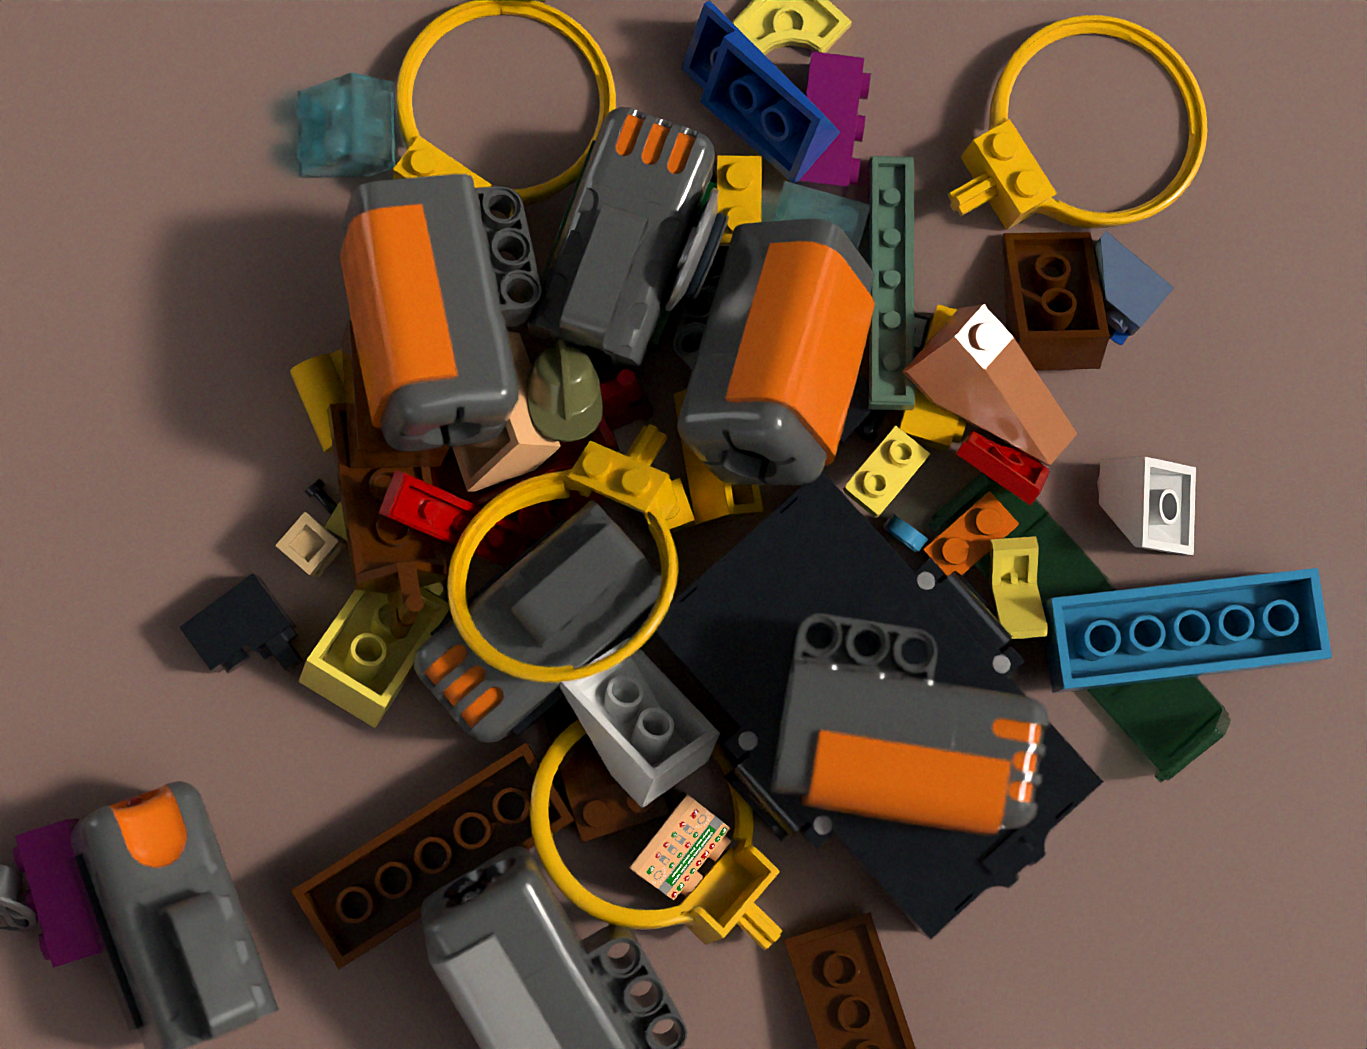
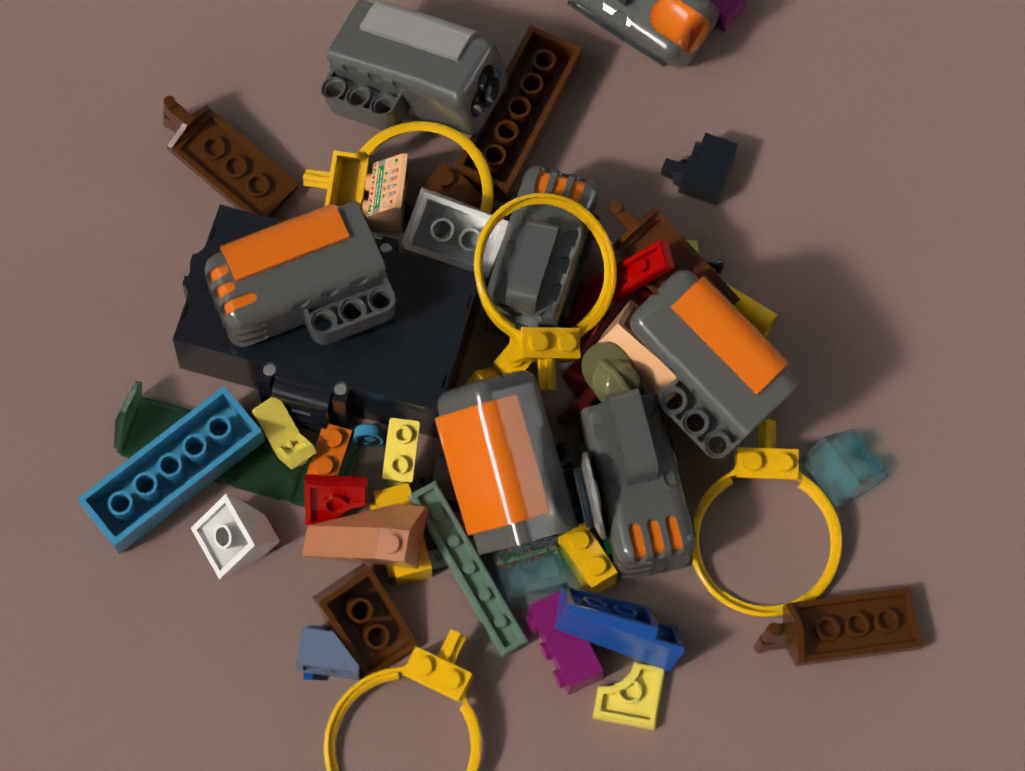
camera: 145 degrees right, 15 degrees down
(310, 545) = (699, 226): tan brick -> none
(361, 661) = (632, 185): light yellow slope -> none

